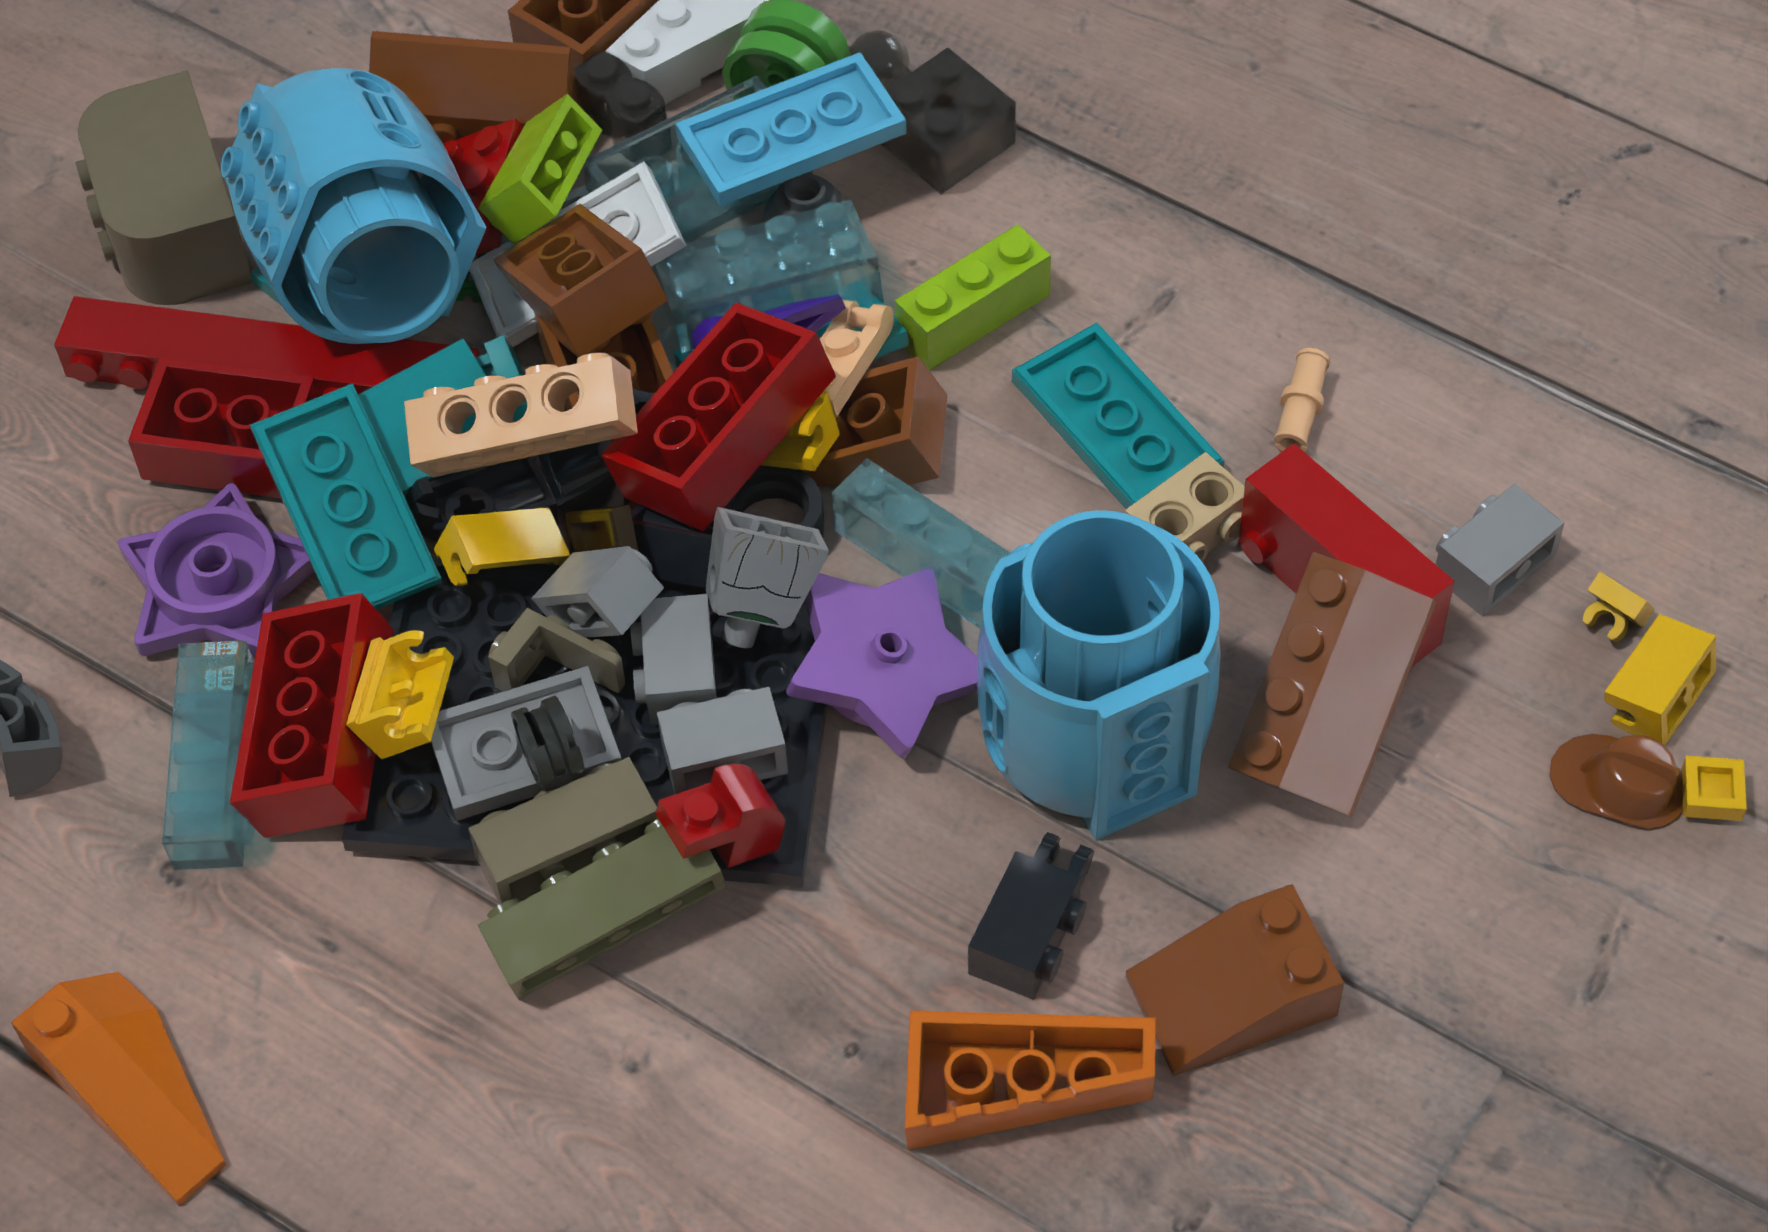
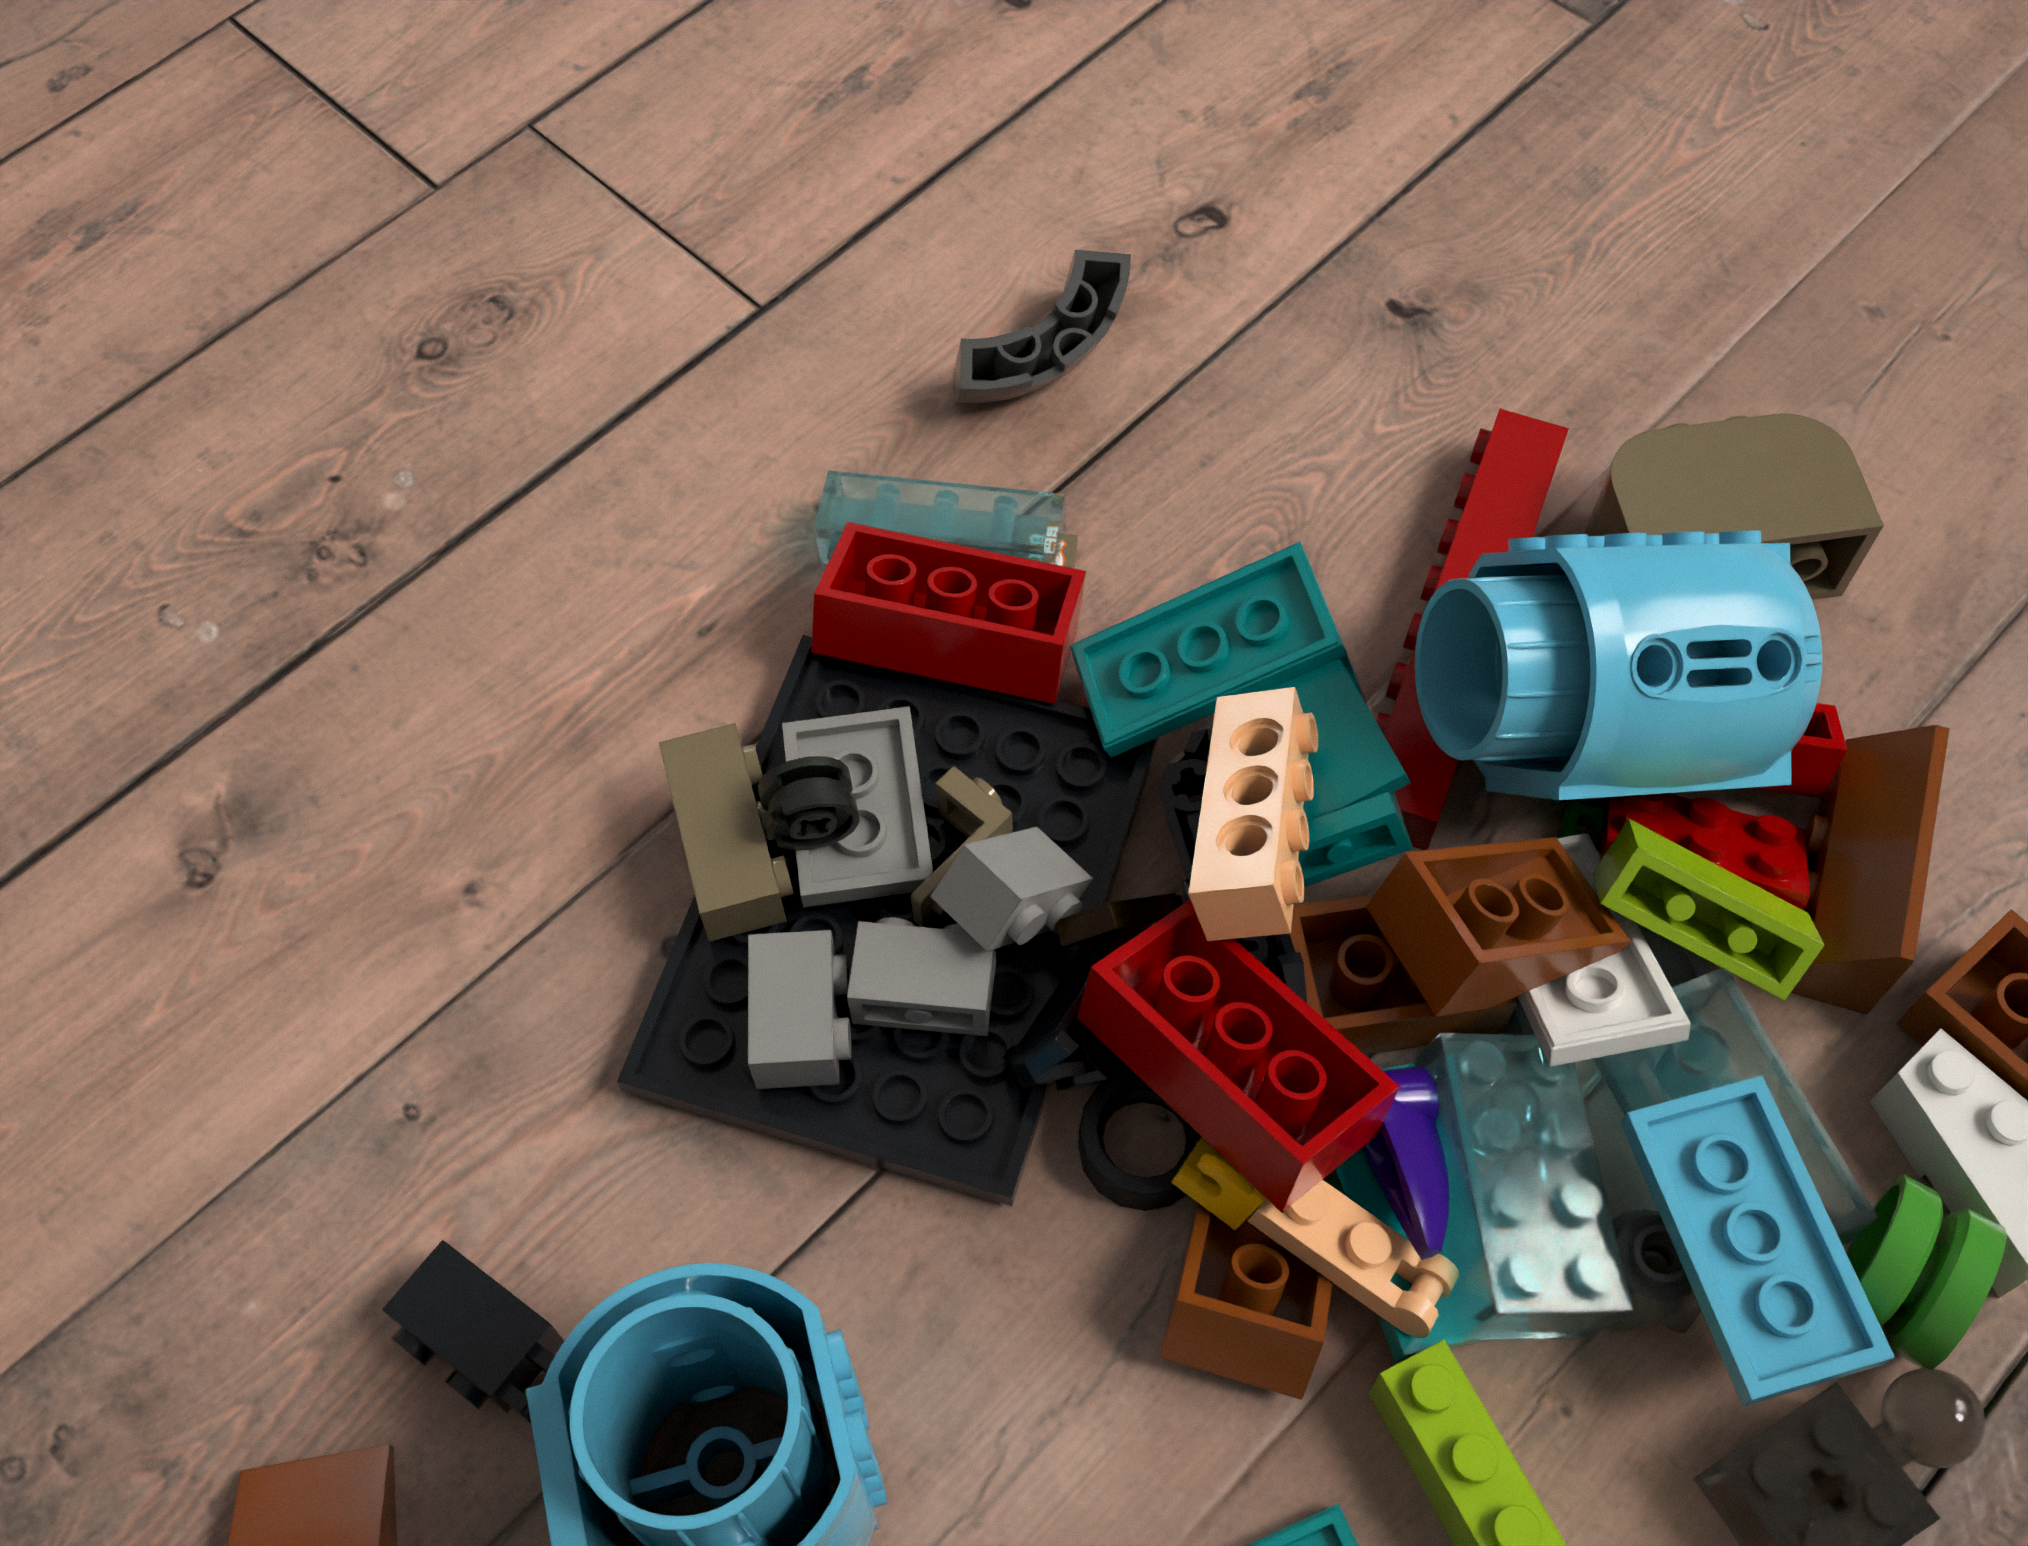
camera: 100 degrees right, 5 degrees up
(123, 1071) = (616, 433): orange wedge -> none
(199, 423) = (1372, 555): red brick -> none
(212, 575) = (1165, 537): medium lavender plate -> none
(399, 694) = (936, 680): yellow hinge -> none
(499, 541) = (1132, 817): yellow hinge -> none
(596, 908) = (633, 866): olive brick -> none
(615, 99) = (1862, 1048): clear smoke brick -> none
(726, 814) = (666, 979): red brick -> none
(760, 572) = (996, 1071): light grey torso -> none
(883, 655) = (924, 1188): medium lavender plate -> none
(916, 534) = (1039, 1326): clear light blue brick -> none
(1019, 1070) = (276, 1277): orange wedge -> none

